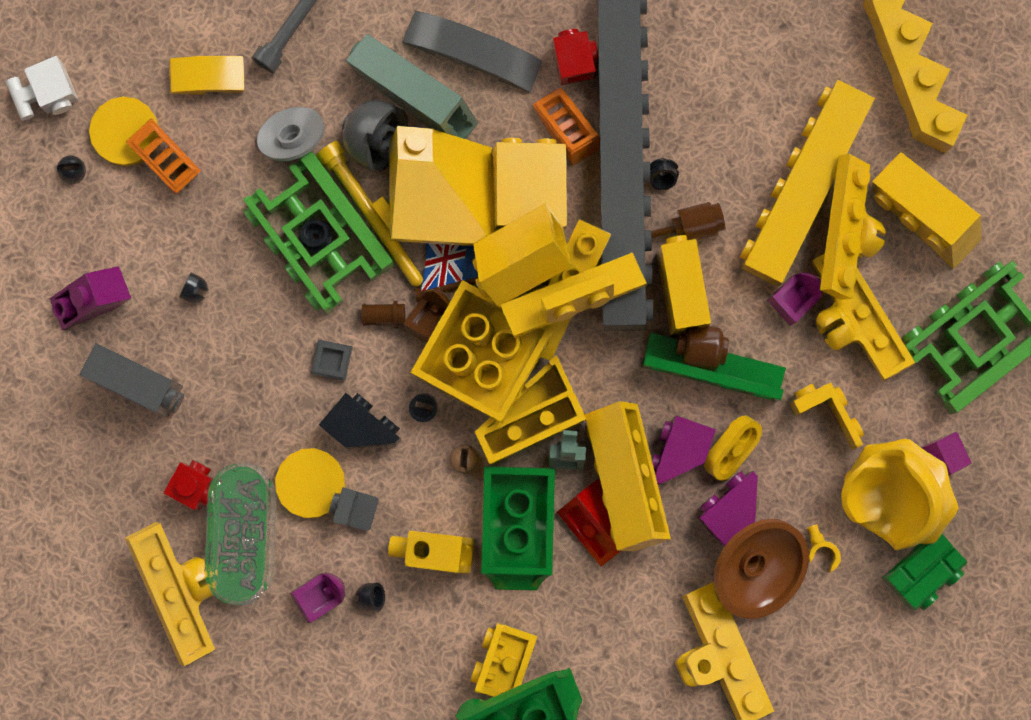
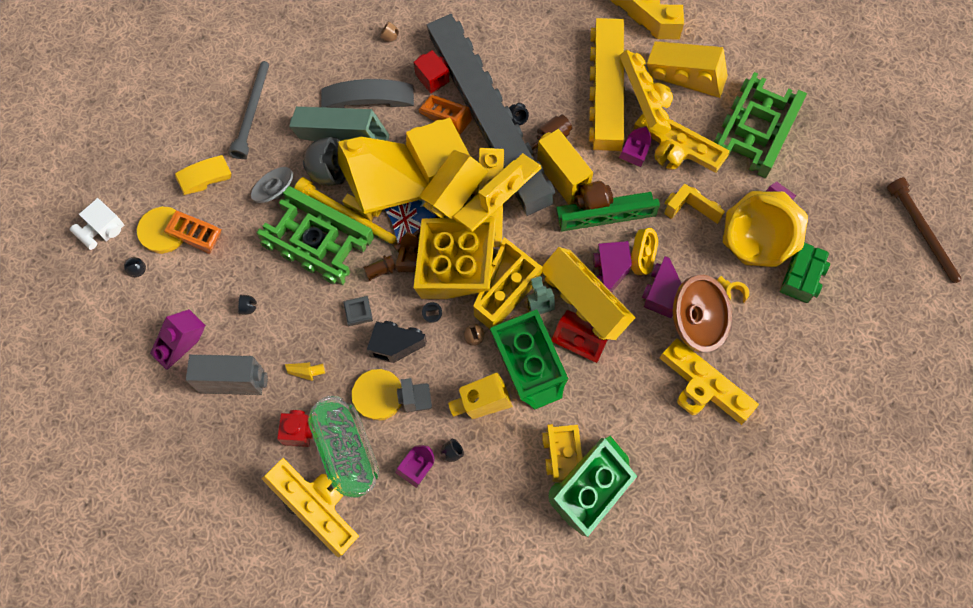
camera: 20 degrees left, 15 degrees down
(233, 410) = (305, 370): none -> yellow bar

